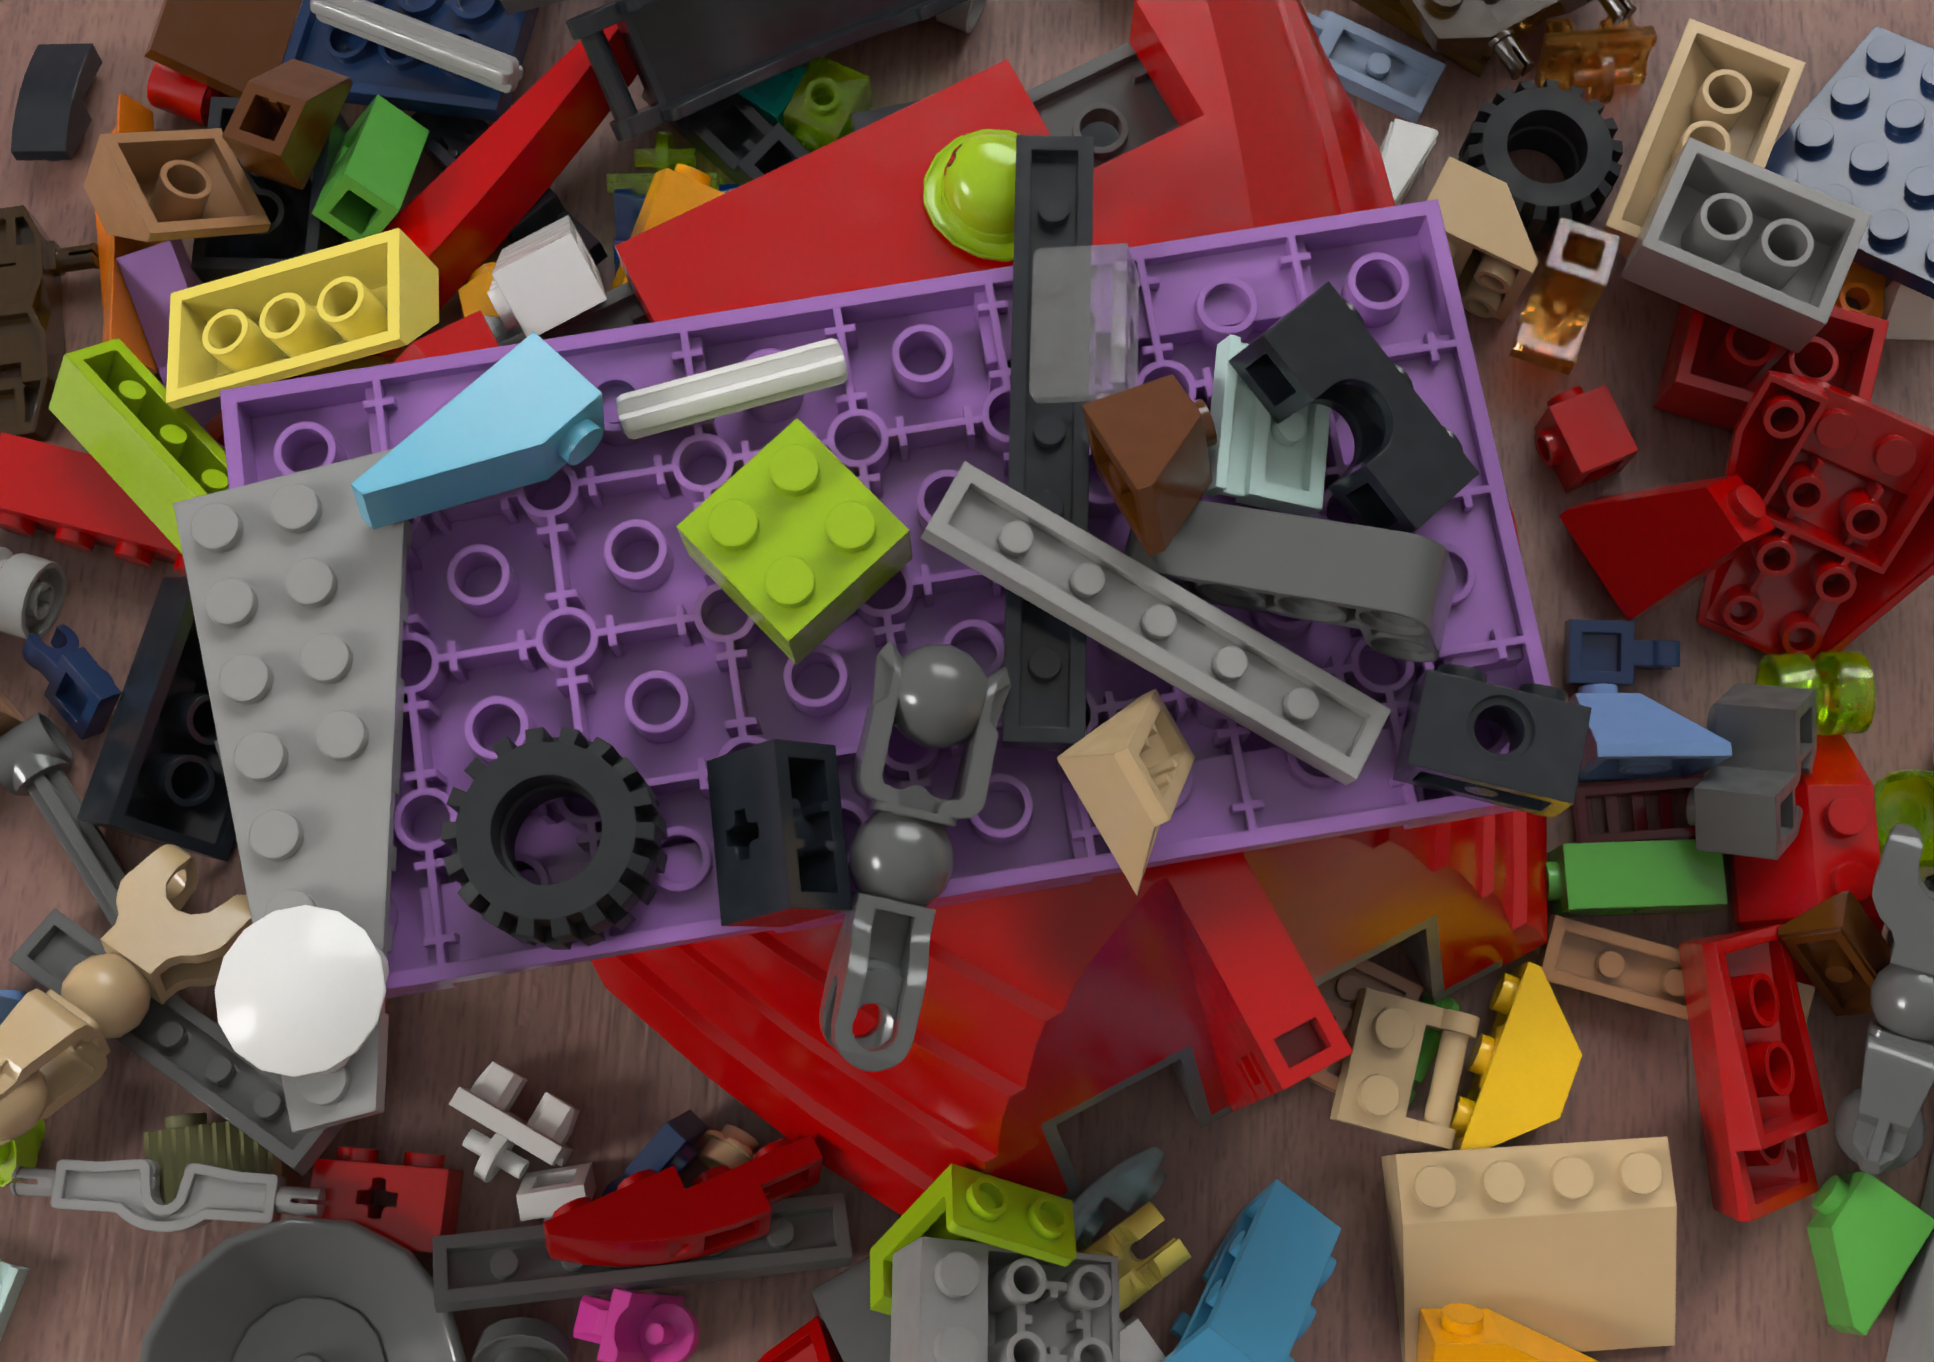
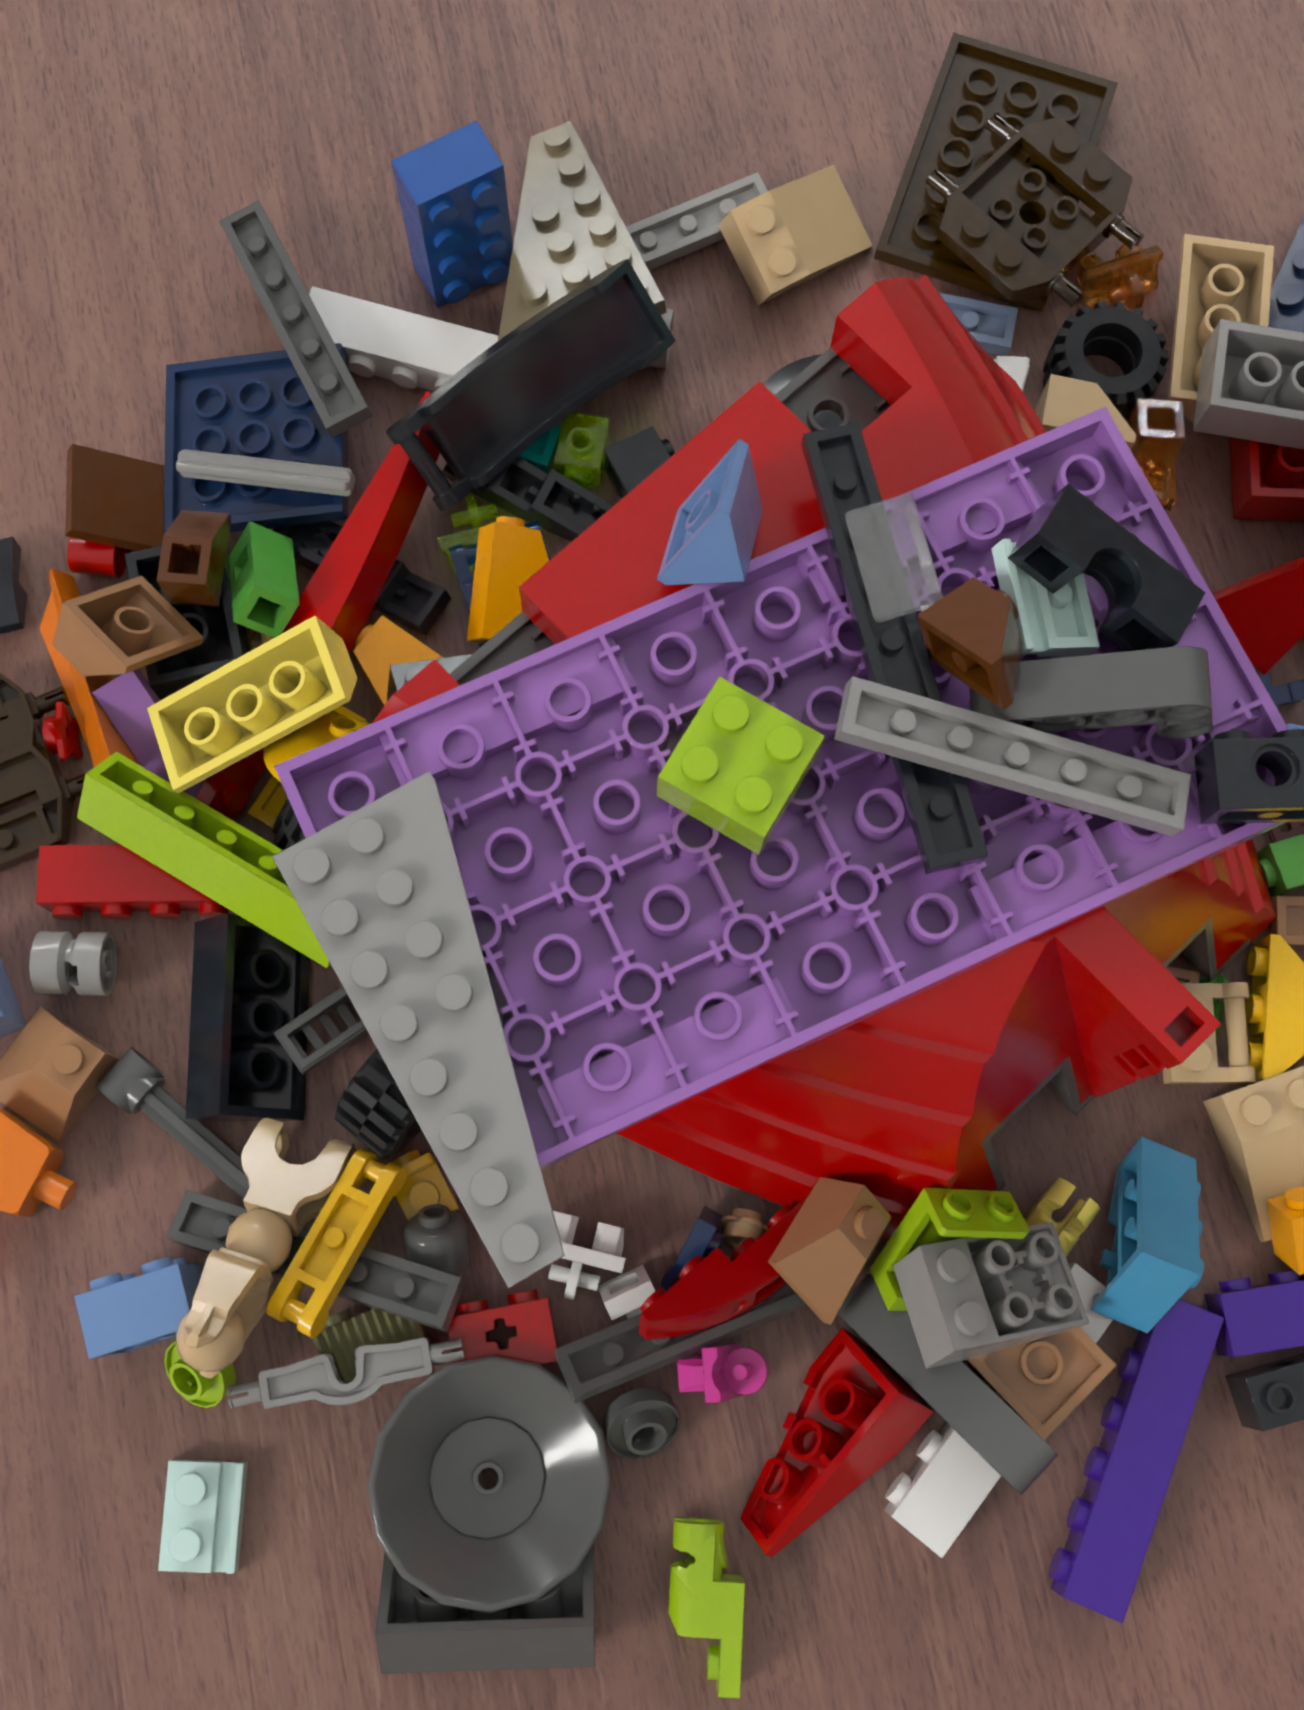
camera: 20 degrees left, 0 degrees up
(77, 302) = (62, 734): none -> red plate
(77, 684) = (150, 1016): dark blue plate -> none
(170, 1046) = (335, 1242): none -> yellow plate
(301, 991) = (488, 1183): white dish -> none
(493, 437) = (499, 747): medium azure slope -> none
(502, 800) = (649, 972): black tyre -> none
(545, 279) = (450, 622): white brick -> none
(732, 388) = (653, 668): white axle -> none
(778, 834) = (794, 977): black brick -> none
(818, 1205) = (830, 1244): none -> medium nougat slope
(880, 228) = (716, 525): none -> medium blue slope
(903, 850) = (885, 970): dark grey piece -> none
(973, 193) = (784, 482): lime hat -> none
(1122, 1185) = (1033, 1171): clear light blue slope -> none
(1131, 778) = (1029, 874): tan slope -> none
(1583, 437) = (1205, 544): red brick -> none

